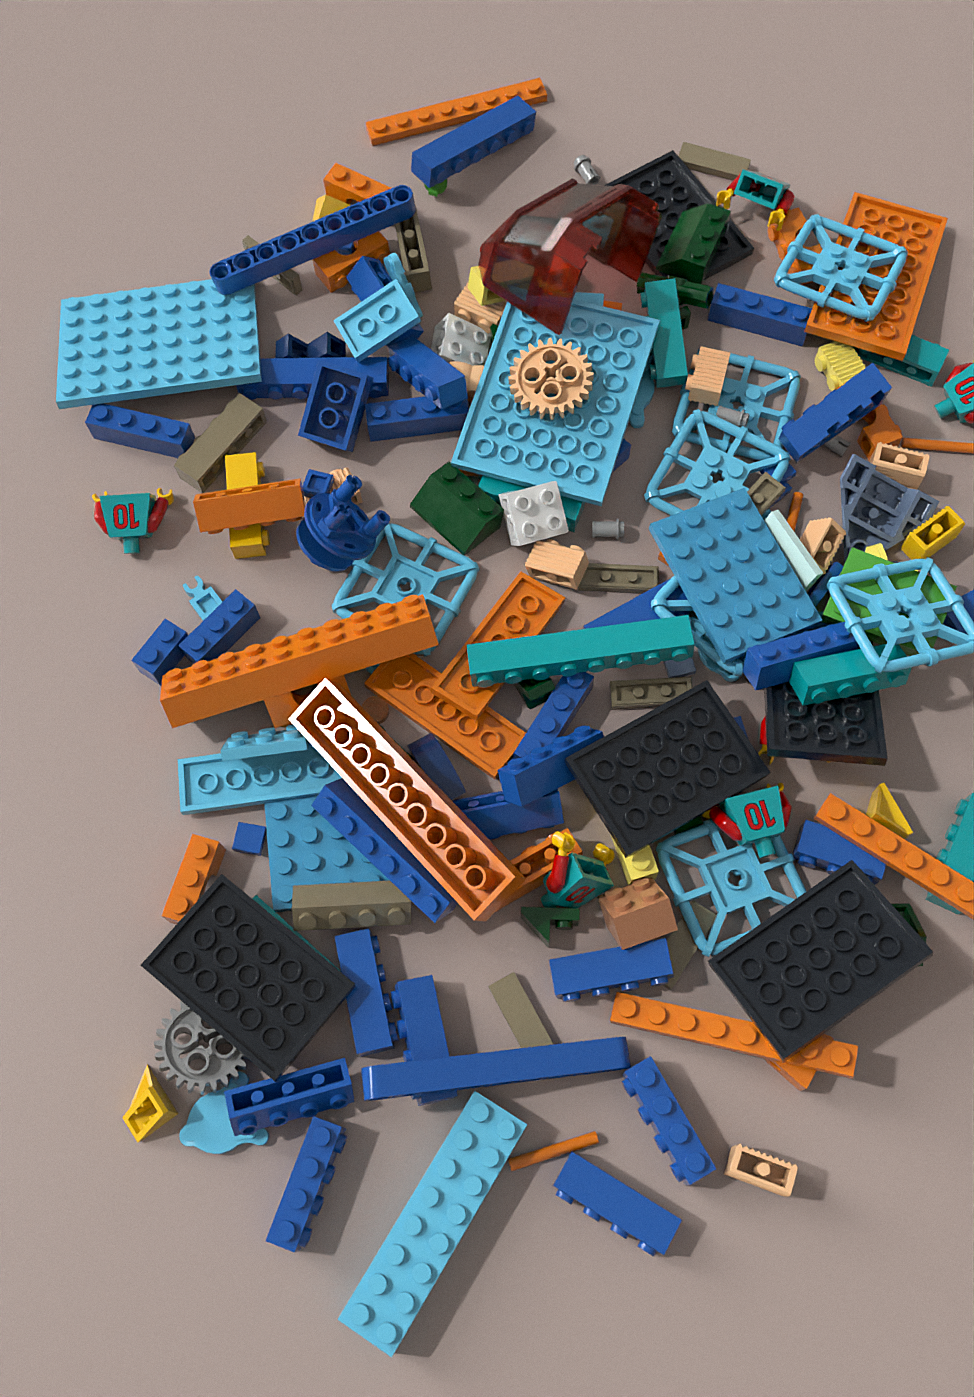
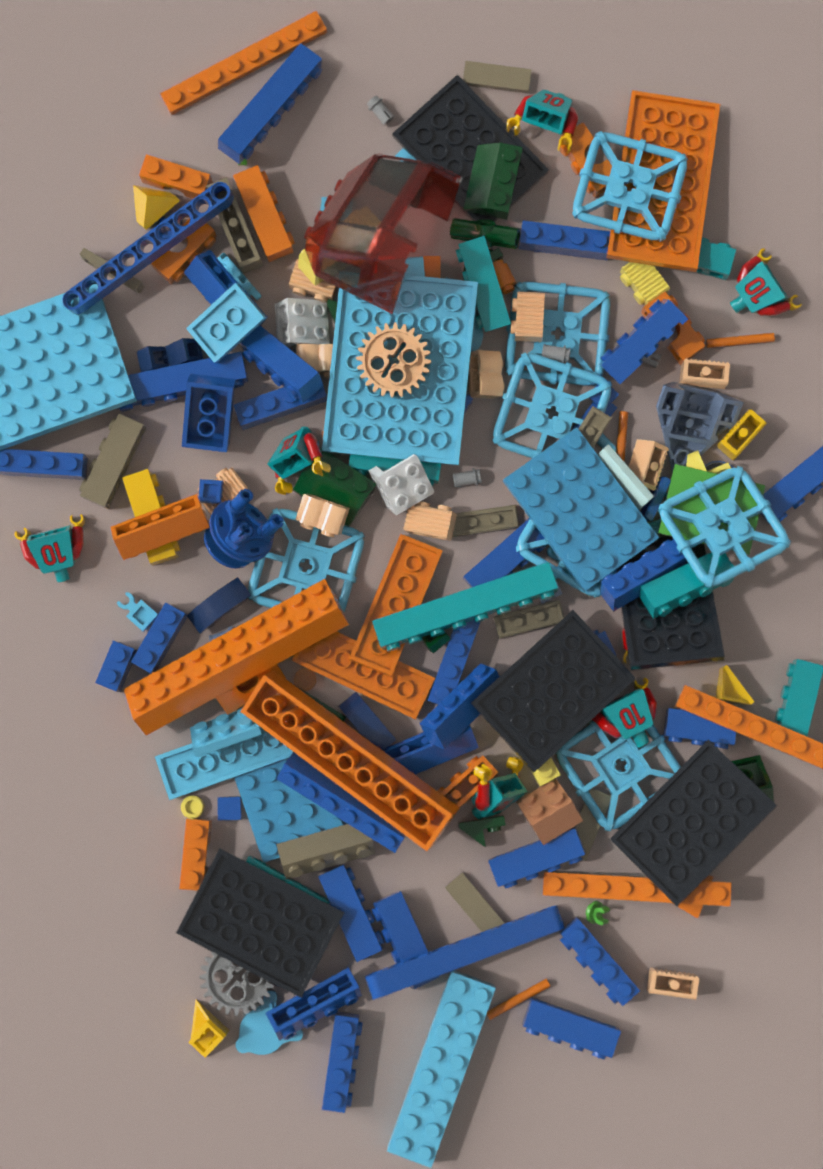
camera: 10 degrees left, 15 degrees up
(207, 826) = (192, 807): none -> light yellow tile
(303, 602) = (218, 604): none -> dark blue brick
(416, 466) = (294, 454): none -> torso
(435, 530) = (322, 514): none -> light nougat brick
(443, 238) = (263, 213): none -> orange brick
(649, 426) = (485, 374): none -> light nougat brick
(672, 1057) = (595, 911): none -> bright green plate
(690, 339) = (504, 276): none -> orange brick

